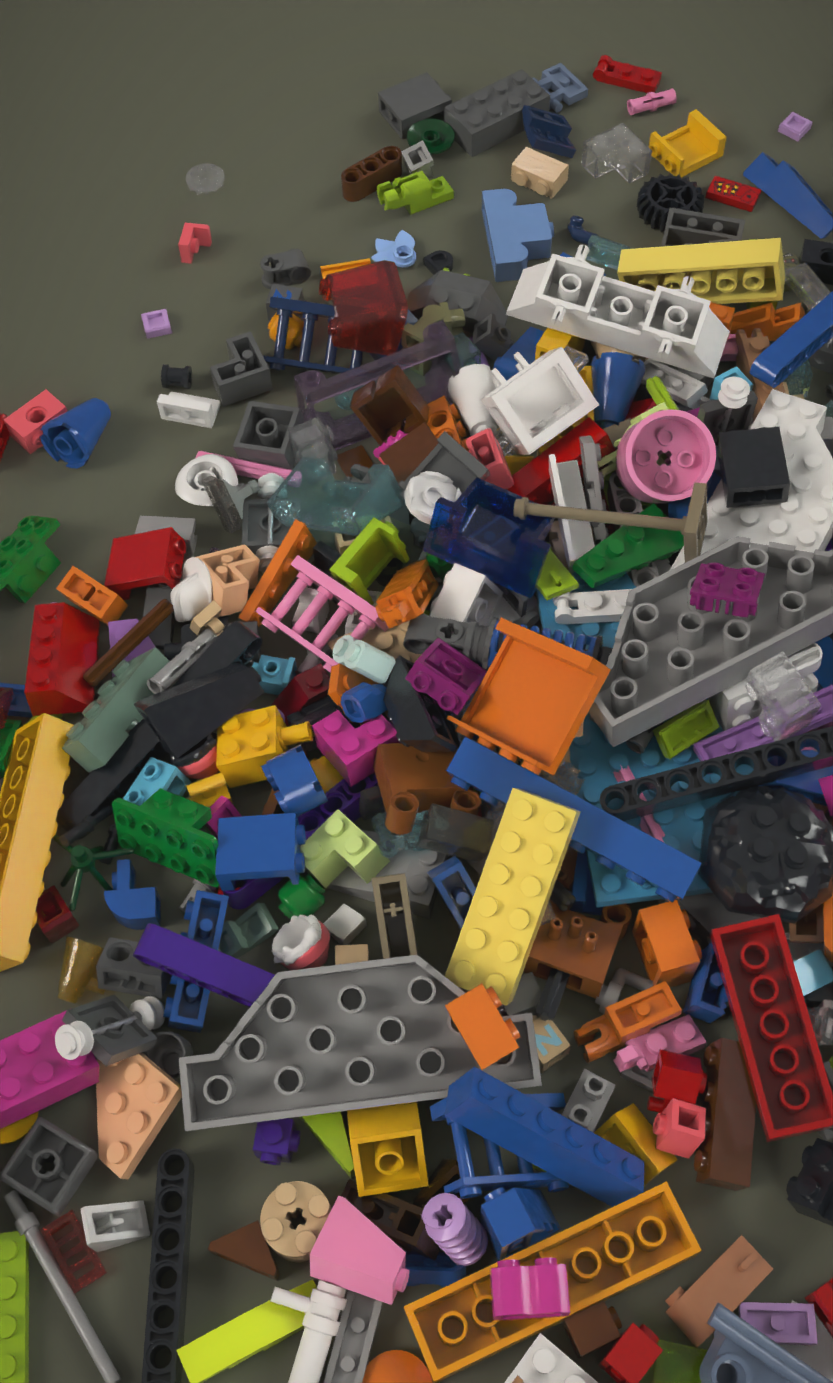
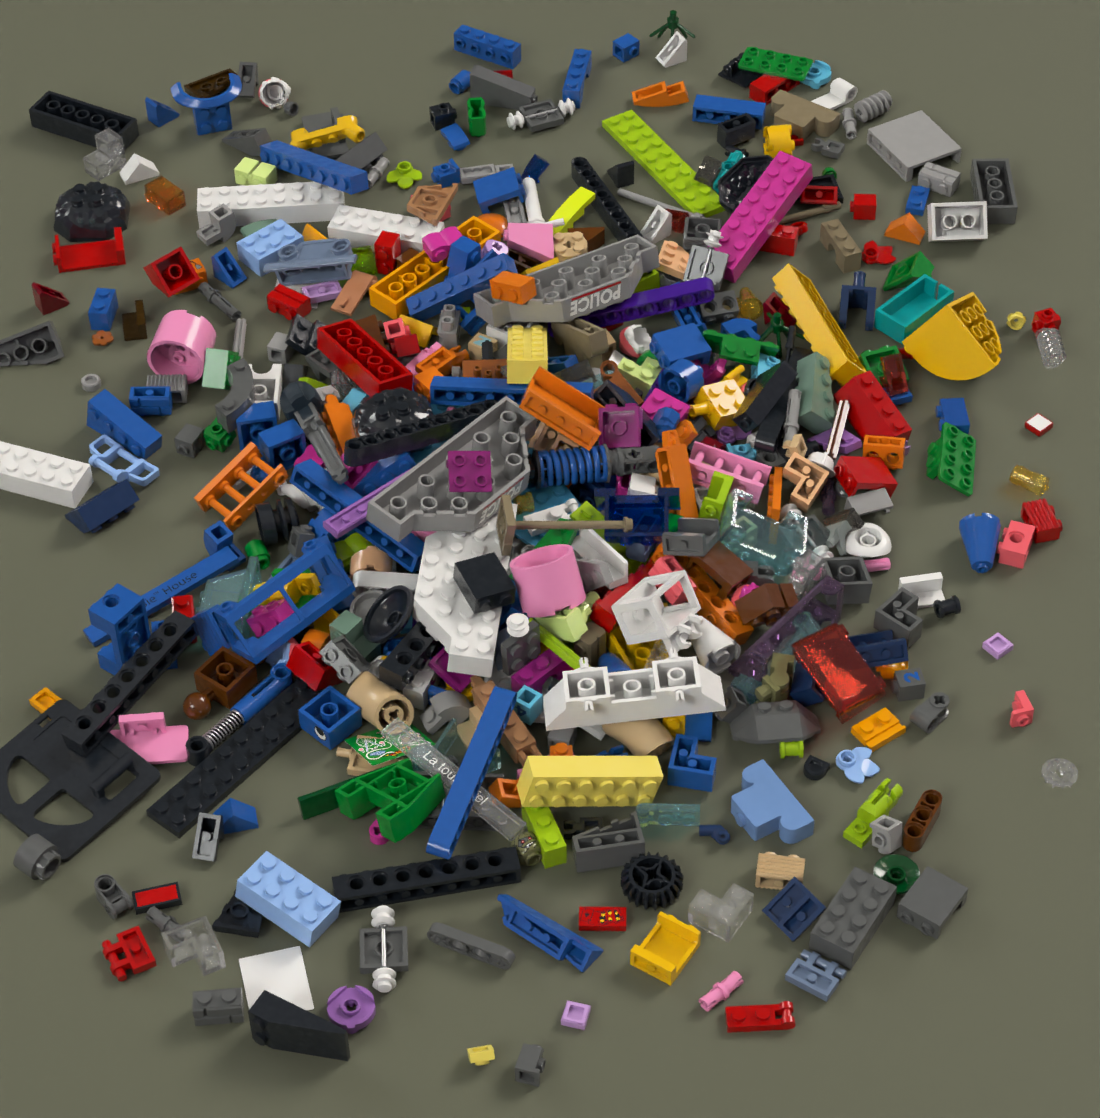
camera: 155 degrees right, 15 degrees down
(363, 658) = (693, 443): light aqua brick -> none
(424, 492) = (690, 518): white tile -> none
(784, 697) = (408, 452): clear brick -> none

